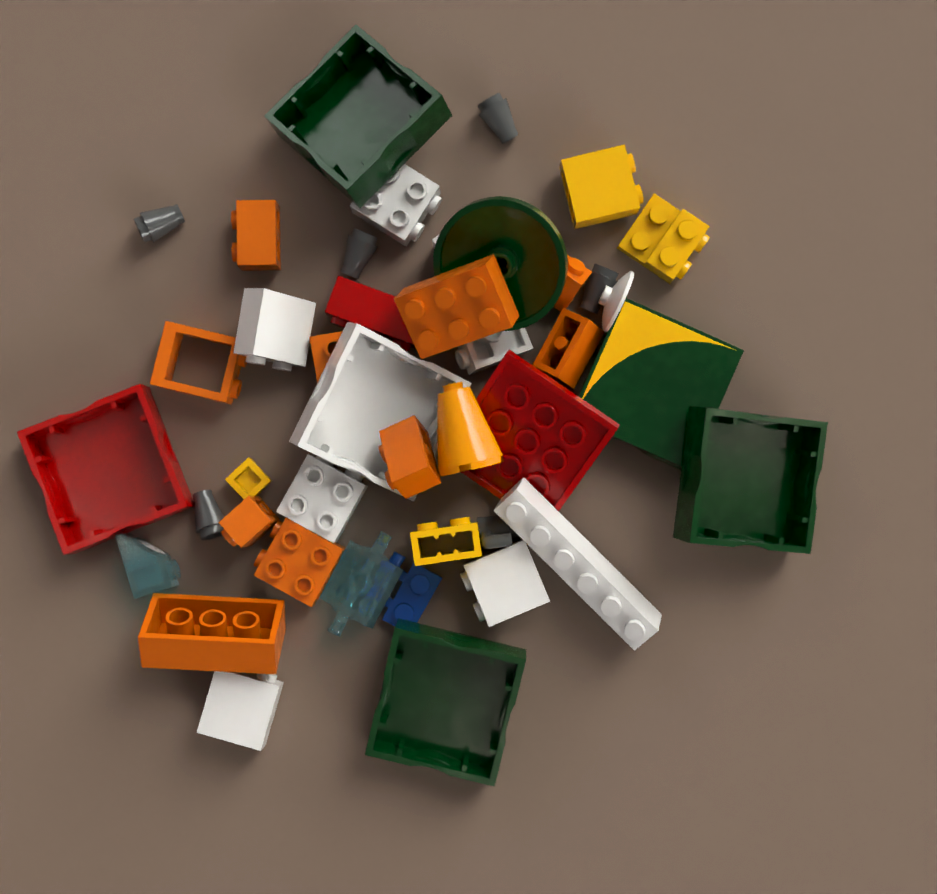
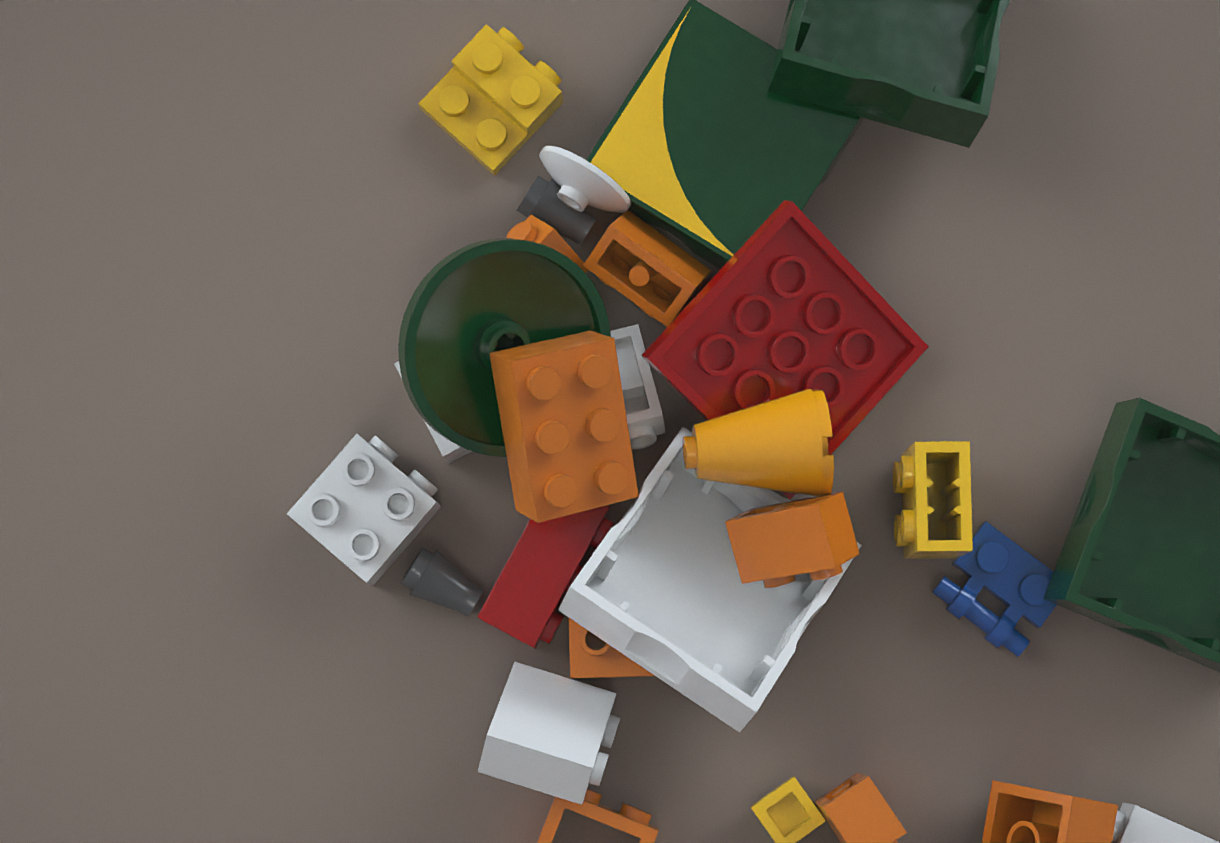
camera: 80 degrees left, 5 degrees down
(257, 235) = (387, 743): orange brick -> none
(298, 561) = (931, 748): orange brick -> none
(322, 498) = (834, 695): white brick -> none
(359, 116) = (223, 546): dark green tile -> none
(361, 584) = (982, 650): clear light blue plate -> none
(495, 533) = (923, 416): dark grey piece -> none
(498, 117) = (259, 327): dark grey cone -> none
(504, 583) = (1010, 418): white brick -> none
(579, 563) = (991, 299): white brick -> none
(600, 186) = (396, 182): yellow brick -> none

